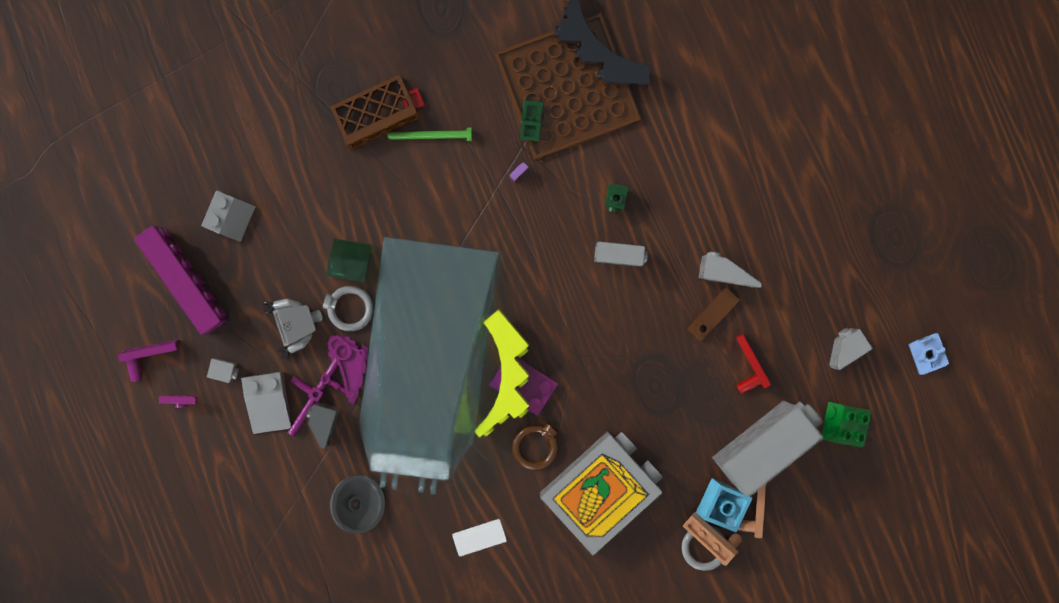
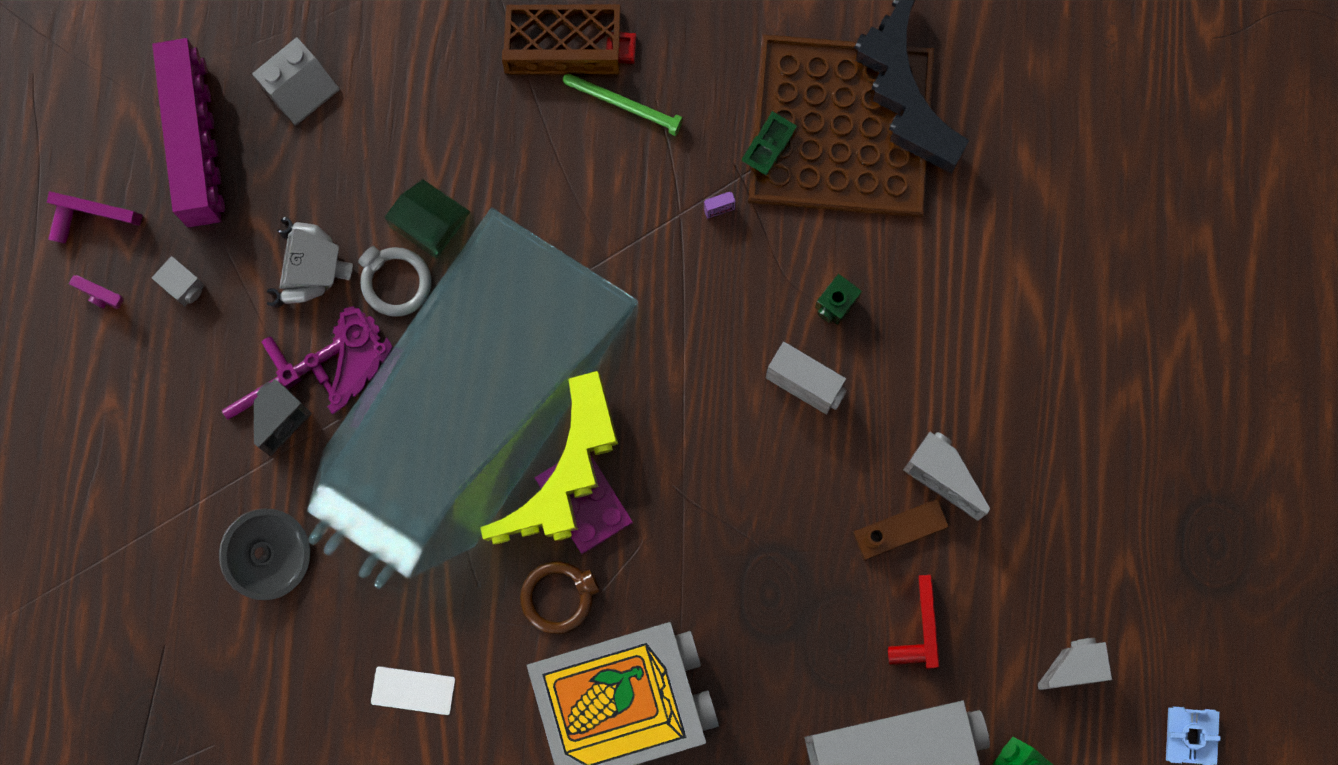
camera: 25 degrees right, 10 degrees down
(266, 402) = (215, 353): light grey slope -> none

